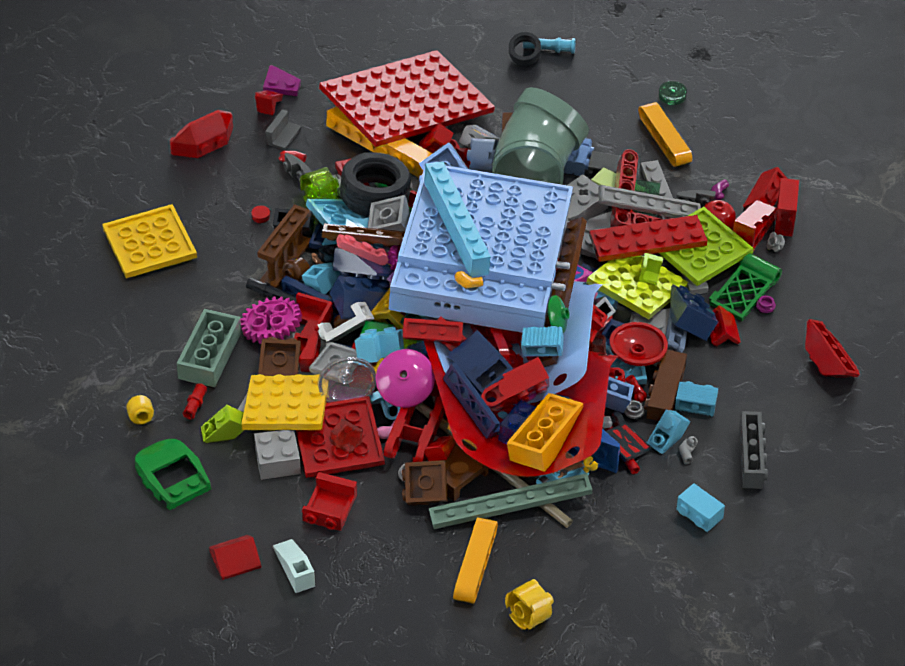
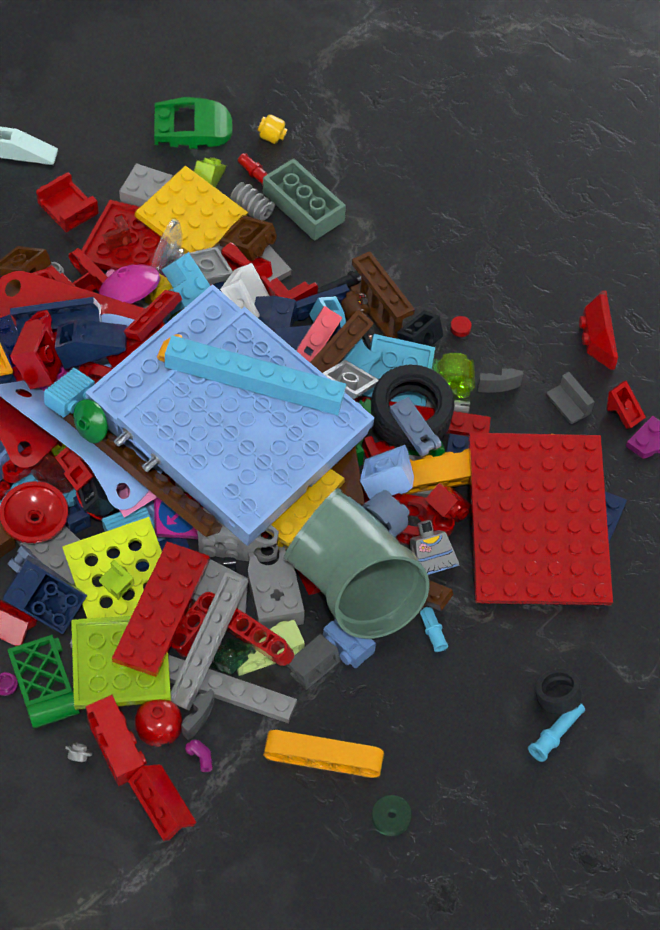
camera: 120 degrees right, 10 degrees up
(149, 241) = (480, 226): yellow plate -> none
(235, 556) = (71, 122): red slope -> none
(236, 379) = (252, 201): none -> light grey piece
(283, 319) = (306, 259): dark pink gear -> none
(301, 156) = (530, 390): red arm -> none
(401, 161) = (414, 426): none -> sand blue plate
(786, 207) = (110, 788): red window -> none

